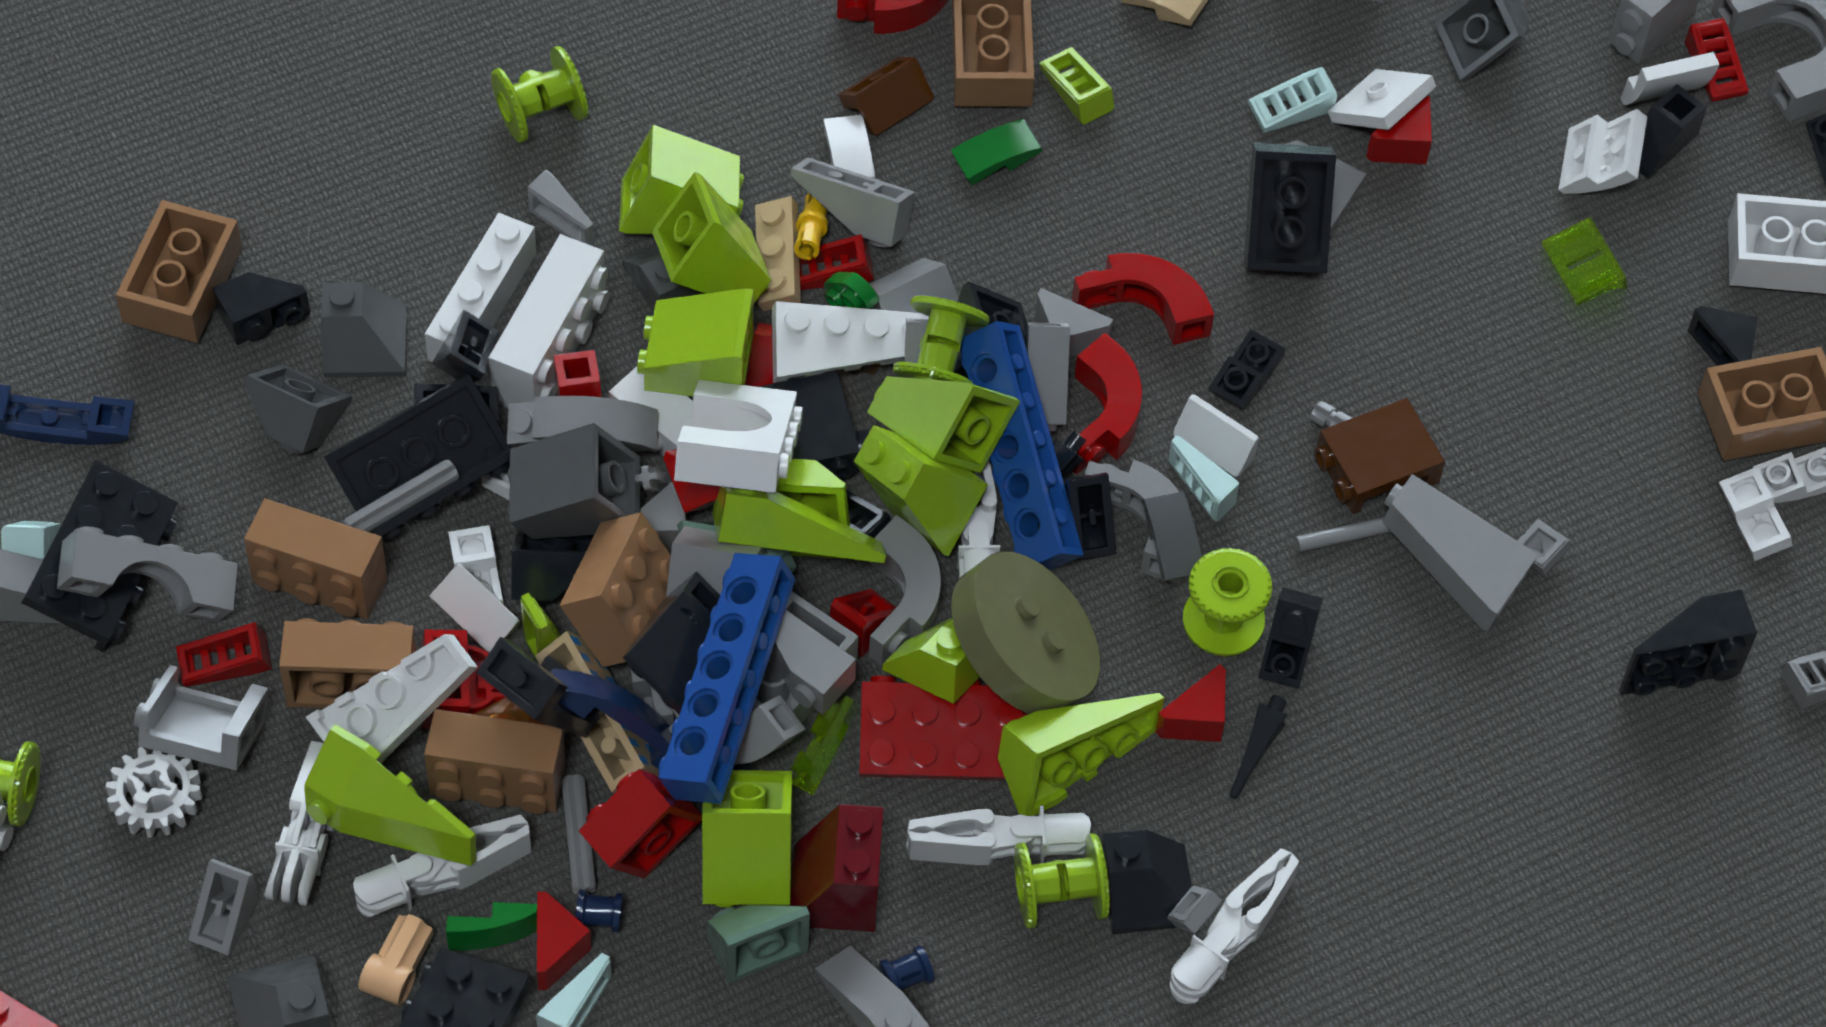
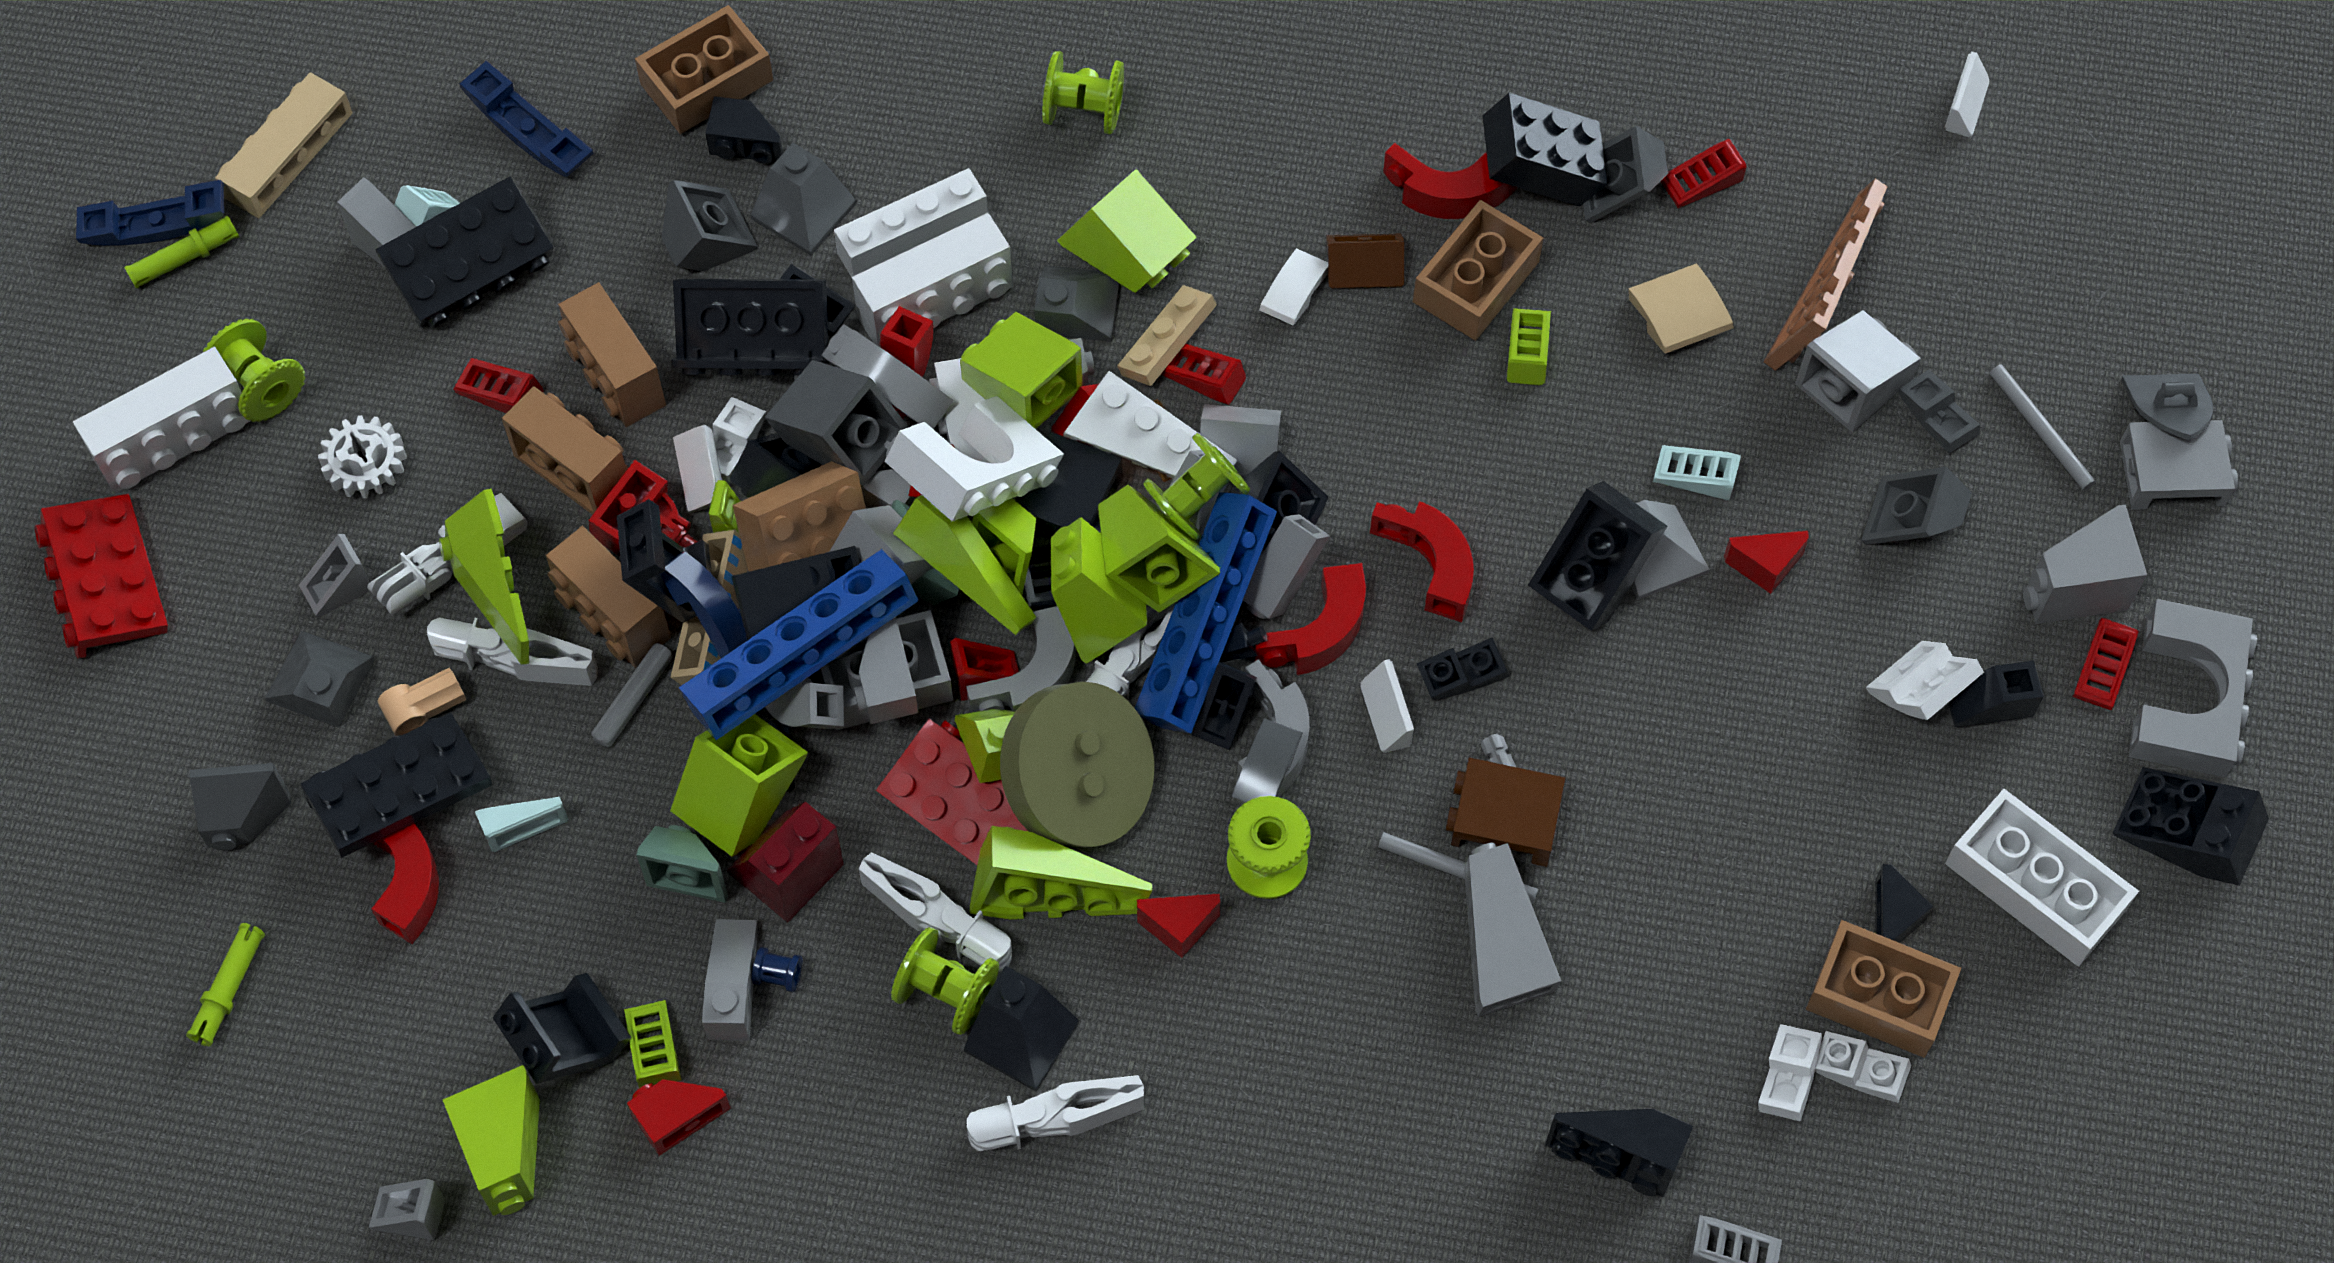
camera: 40 degrees right, 5 degrees up
(197, 583) = (516, 318): light grey arch -> none
(200, 723) = (433, 425): light grey panel -> none
(398, 699) = (555, 502): white wing -> none
(404, 497) = (712, 348): light grey axle -> none
(466, 347) = (849, 258): black slope -> none
(507, 924) = (514, 726): green slope -> none
(558, 209) = (1026, 189): light grey slope -> none
(560, 940) = (542, 766): red slope -> none
(600, 910) = (594, 763): dark blue bush -> none
(639, 824) = (653, 717): red brick -> none
(708, 243) = (1103, 297): lime slope -> none
(811, 228) = (1210, 328): yellow pin -> none
(828, 732) = (848, 759): clear neon green piece -> none
(850, 290) = (1186, 402): green plate -> none
(858, 201) = (1259, 330): light grey slope -> none
(1001, 146) = (1420, 358): green slope -> none
(1083, 322) = (1347, 540): light grey slope -> none
(1194, 909) = (1029, 1076): light grey tile -> none
(1205, 479) = (1348, 750): light aqua slope -> none
(1265, 729) = (1220, 972): black piece -> none
(1290, 637) = (1304, 910): black slope -> none
(1382, 99) = (1768, 514): white plate -> none
(1546, 543) = (1579, 976): light grey tile -> none
(1592, 276) = (1832, 780): clear neon green piece -> none
(1659, 79) = (2046, 654): white slope -> none

